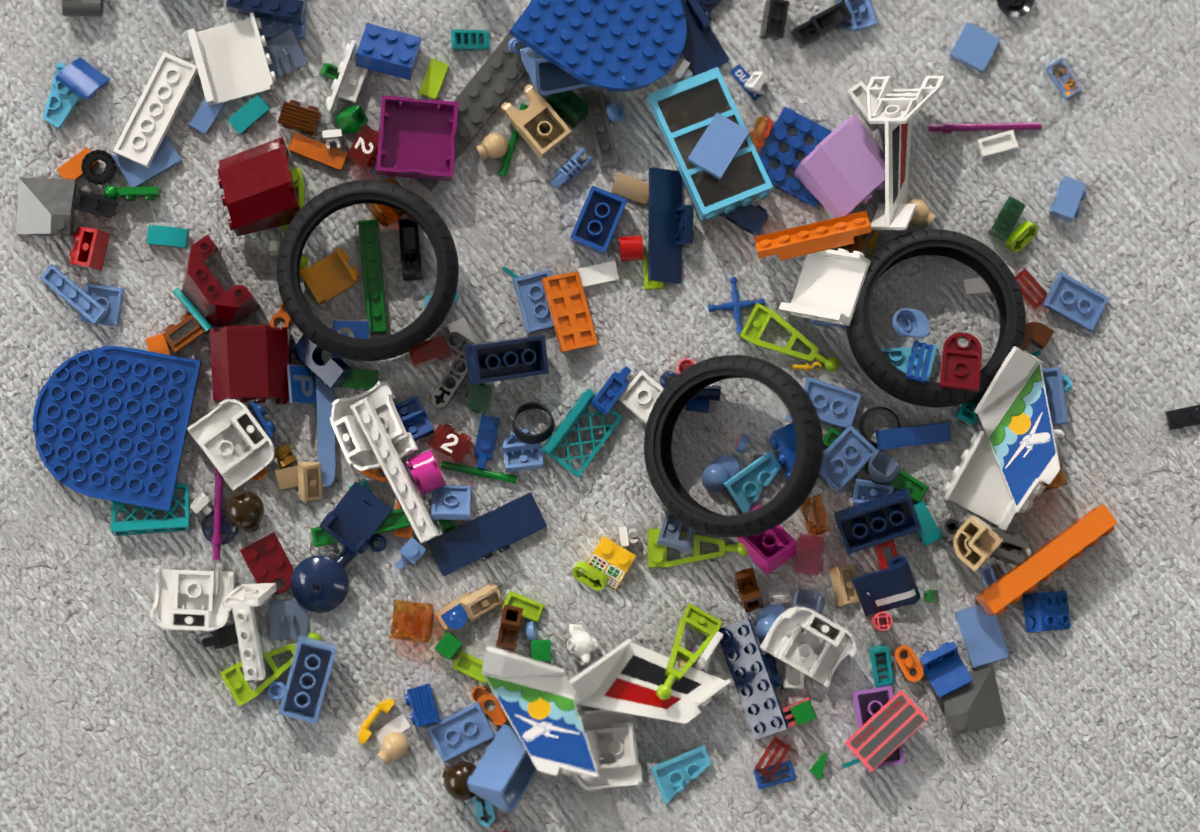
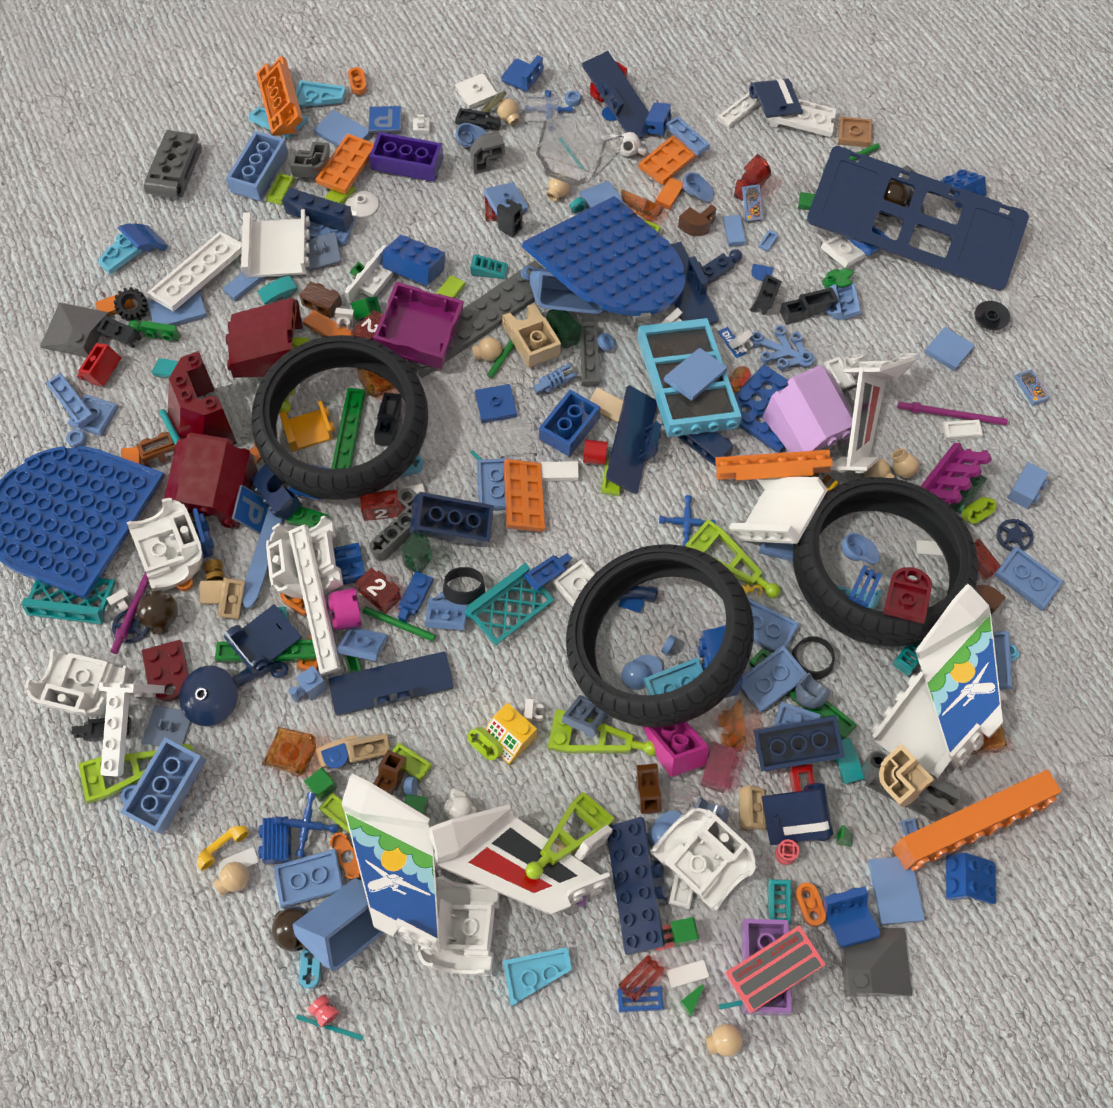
camera: 20 degrees right, 20 degrees down
(94, 336) = (76, 438): none -> medium blue tile
(446, 687) = (305, 824): none -> blue piece
(516, 208) = (495, 403): none -> blue plate
(804, 83) = (783, 349): none -> medium blue plant
(811, 744) = (687, 973): none -> white sticker
(852, 794) = (725, 1040): none -> tan piece
(913, 435) = (847, 669): blue tile -> none
(943, 199) = (904, 463): none -> tan piece
(983, 202) = (951, 465): none -> magenta fence
(1059, 255) = (1014, 534): none -> dark blue wheel

